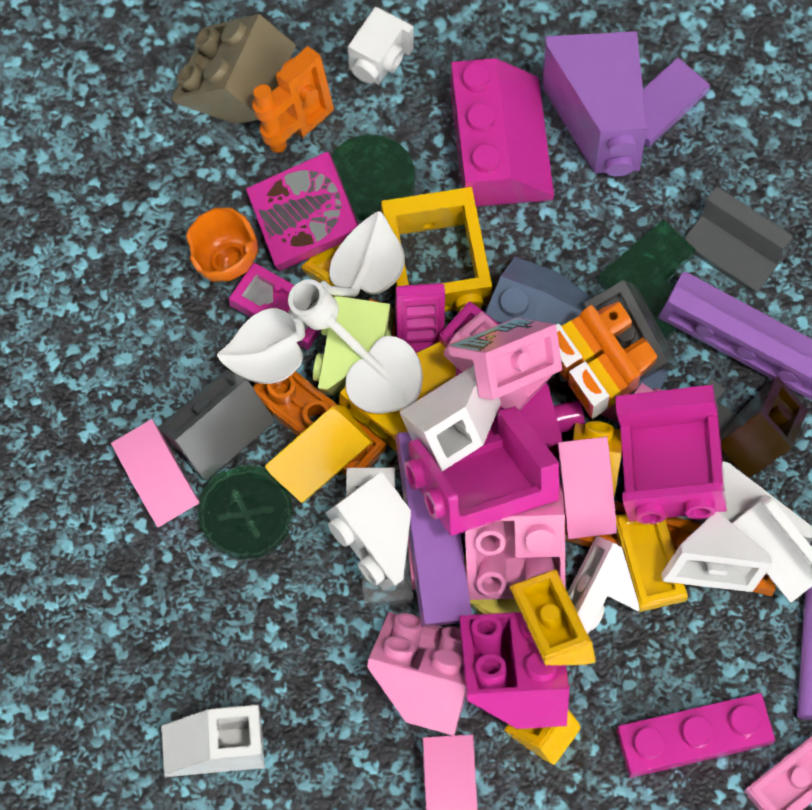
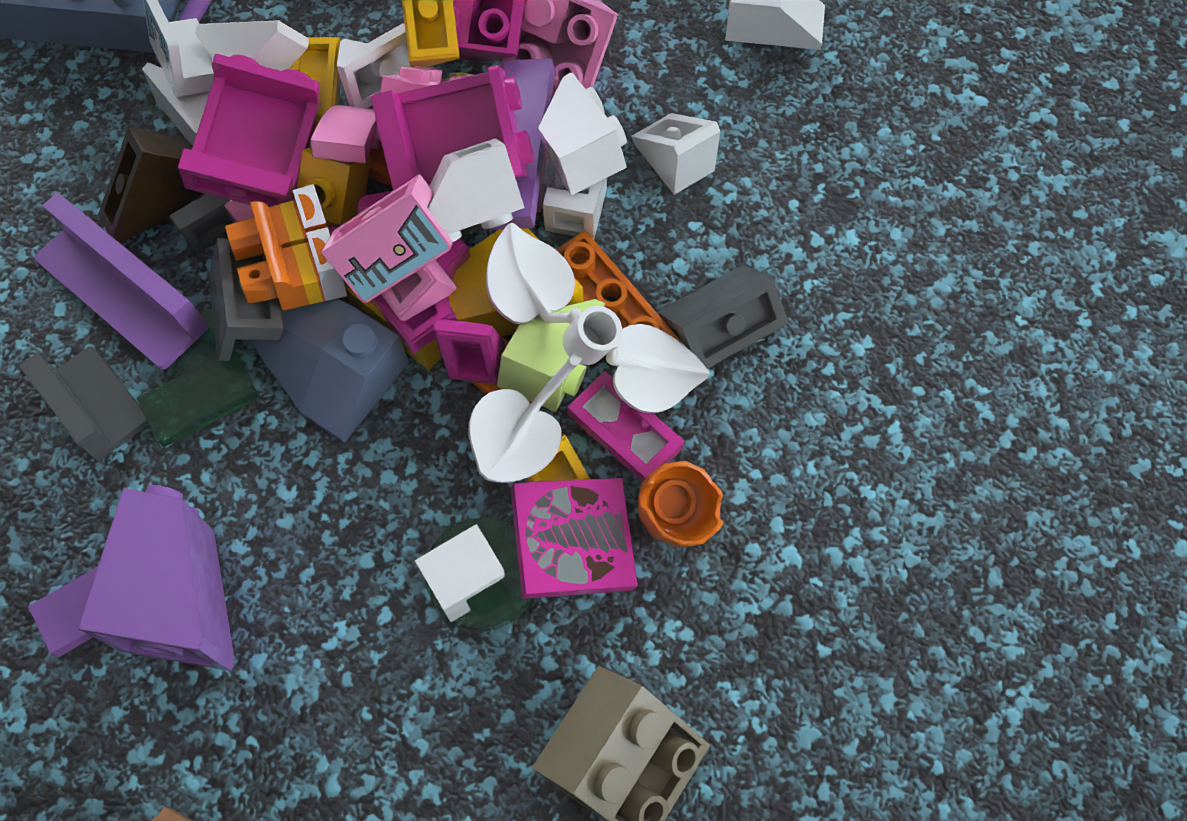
camera: 165 degrees left, 0 degrees up
(155, 473) = (798, 270): bright pink slope -> none
(245, 512) = (706, 225): clear green tile -> none
(287, 575) = (680, 149): none -> white slope
(297, 102) = (542, 680): orange plate -> none
(319, 453) = (618, 249): yellow slope -> none
(379, 46) = (423, 746): white brick -> none
(382, 152) = (460, 570): none -> white panel
(443, 211) = (421, 501): yellow window -> none
(500, 132) = (310, 590): dark pink slope -> none

